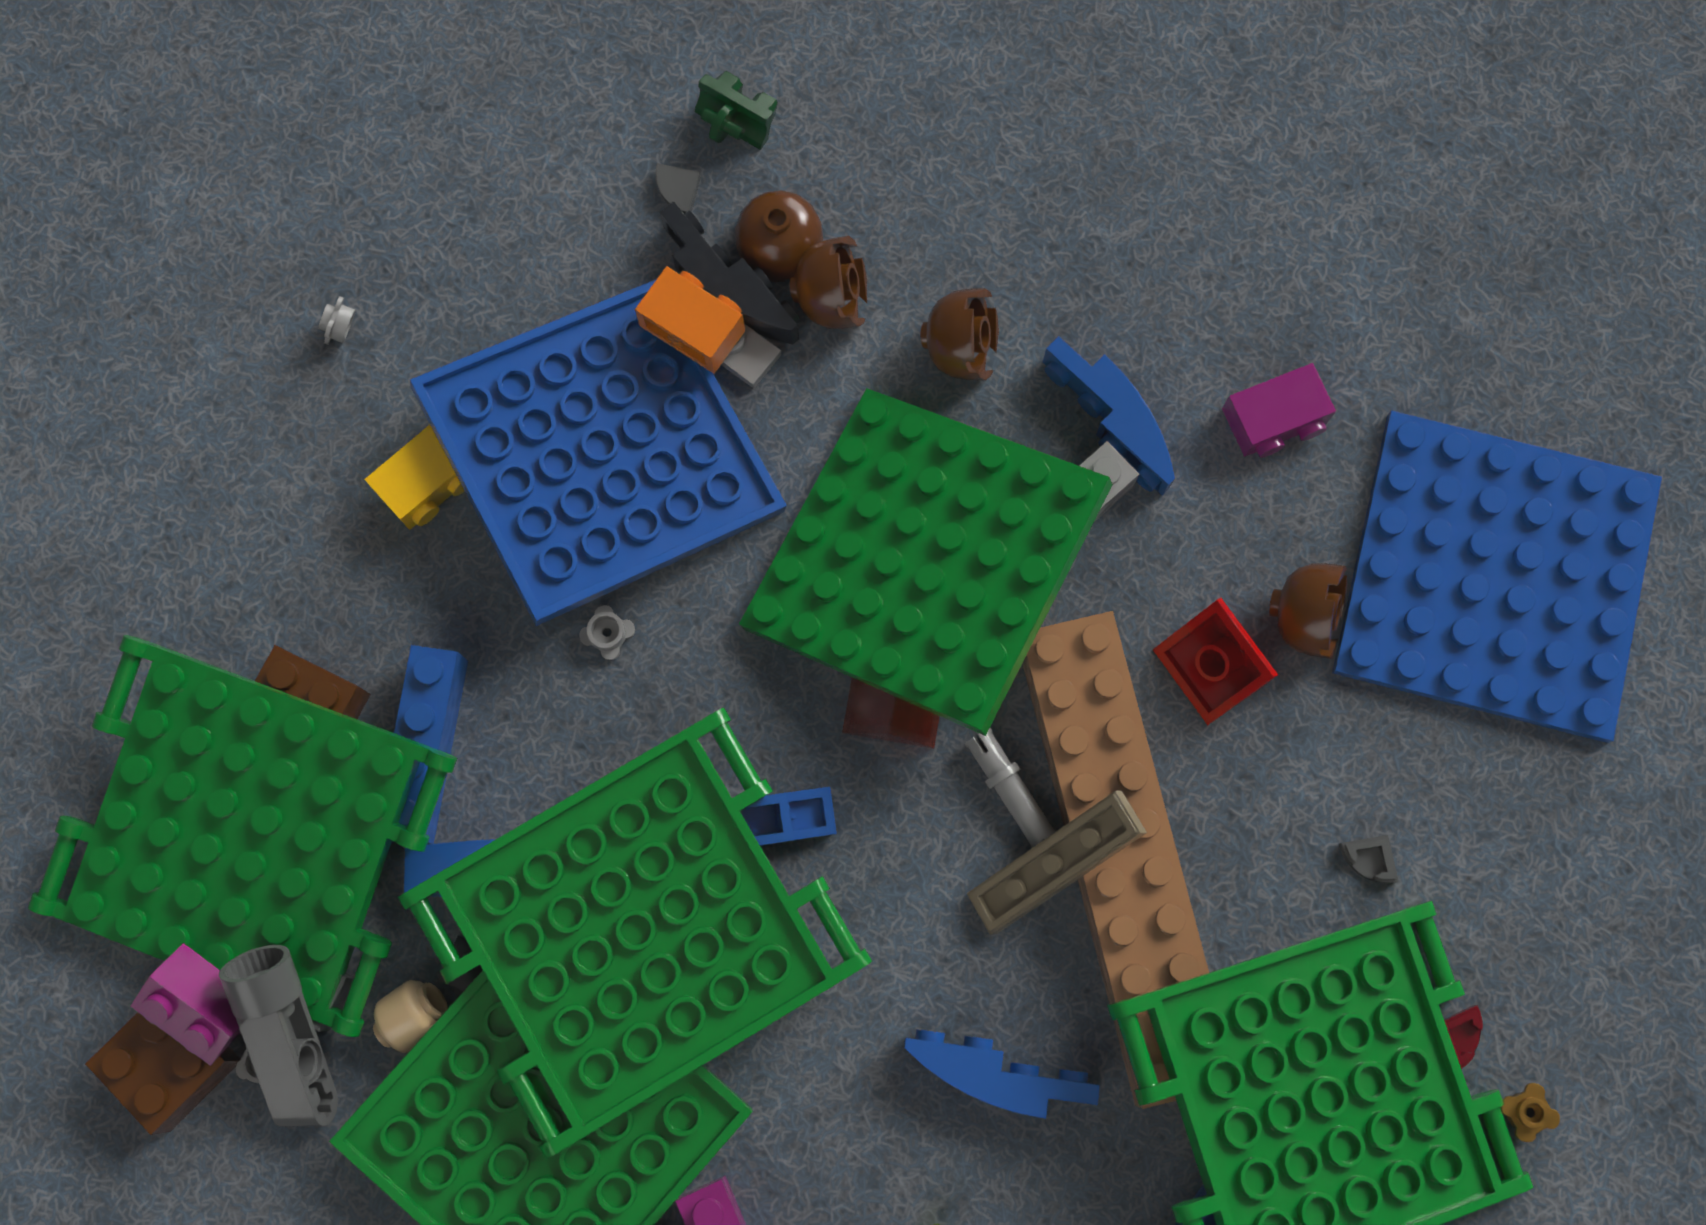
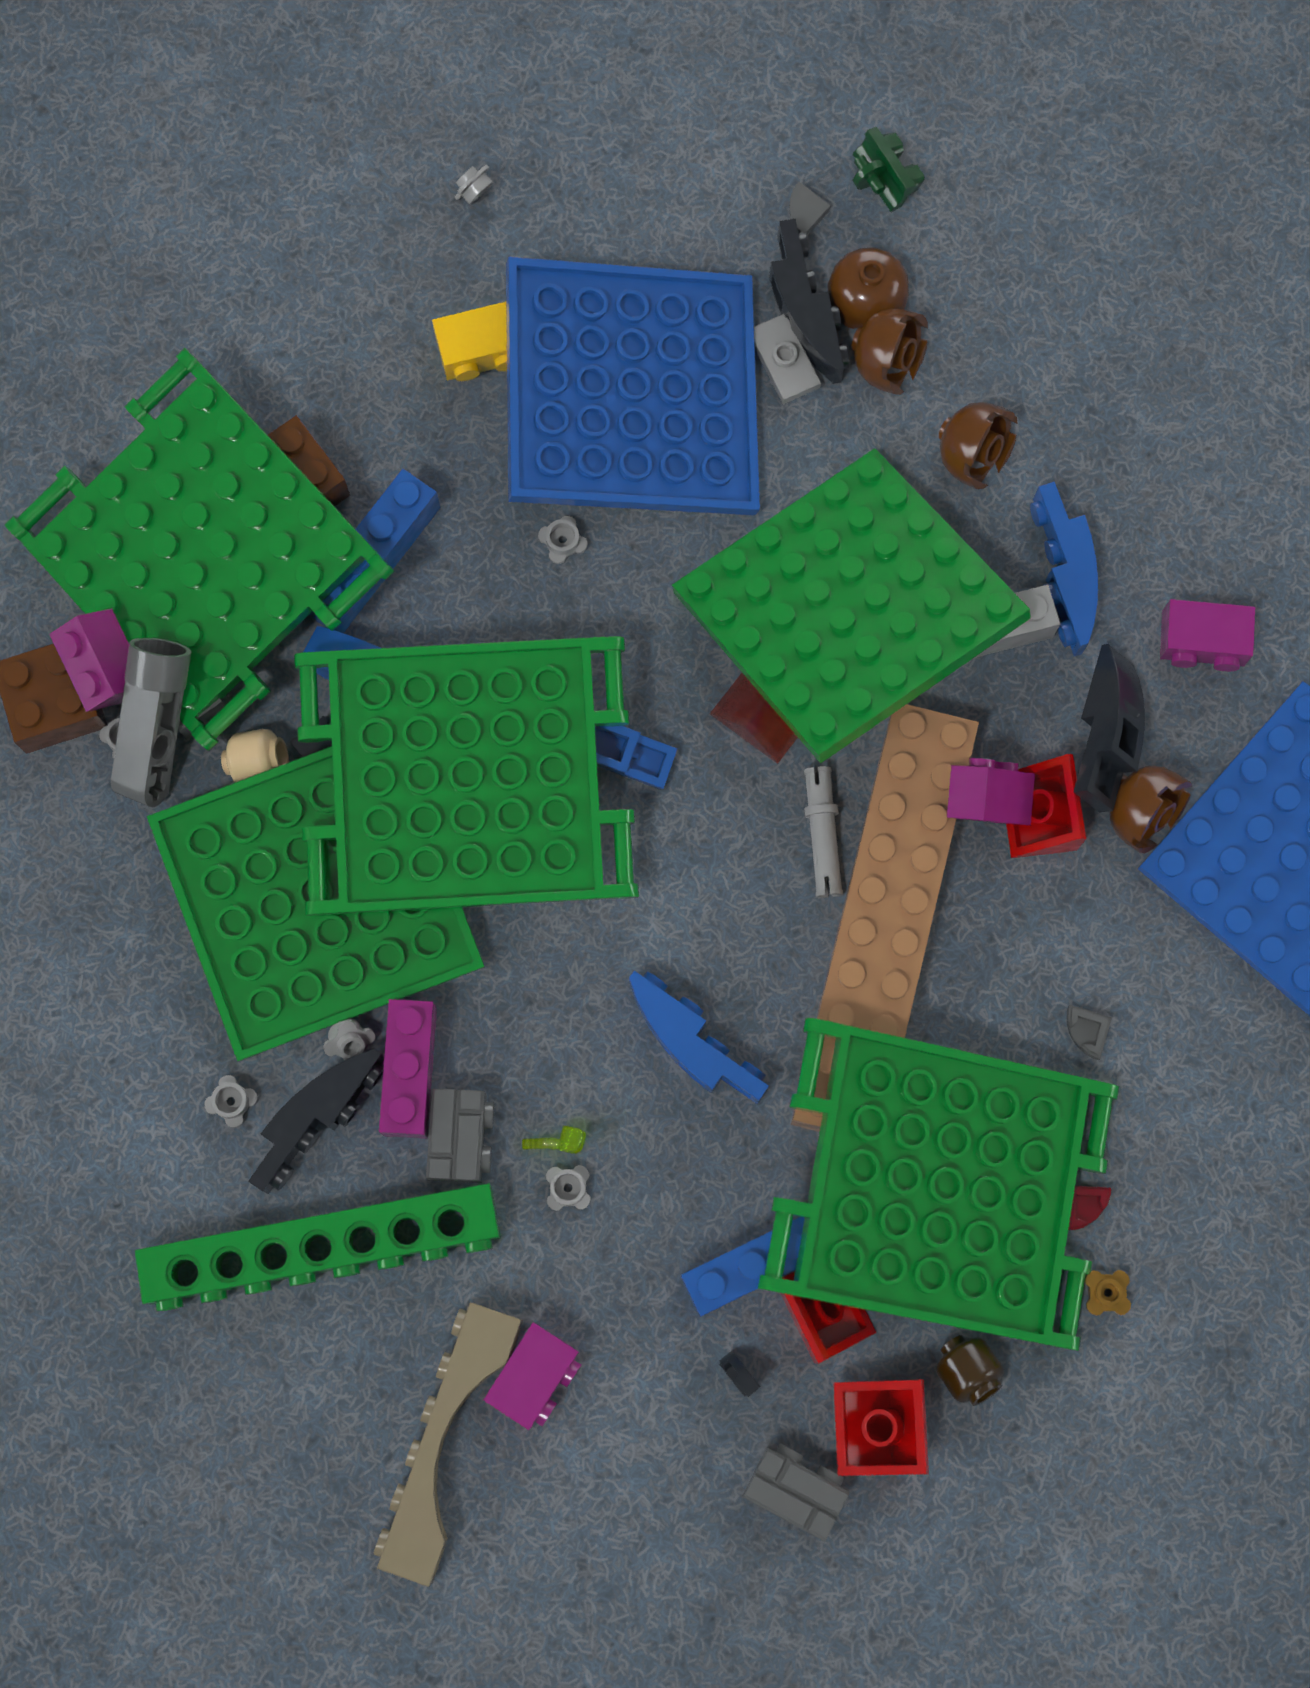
camera: 25 degrees right, 0 degrees up
(691, 318) = (759, 319): orange brick -> none
(1056, 862) = (826, 895): dark tan tile -> none
(1161, 676) = (990, 792): none -> magenta brick
(1252, 560) = (1117, 729): none -> black slope

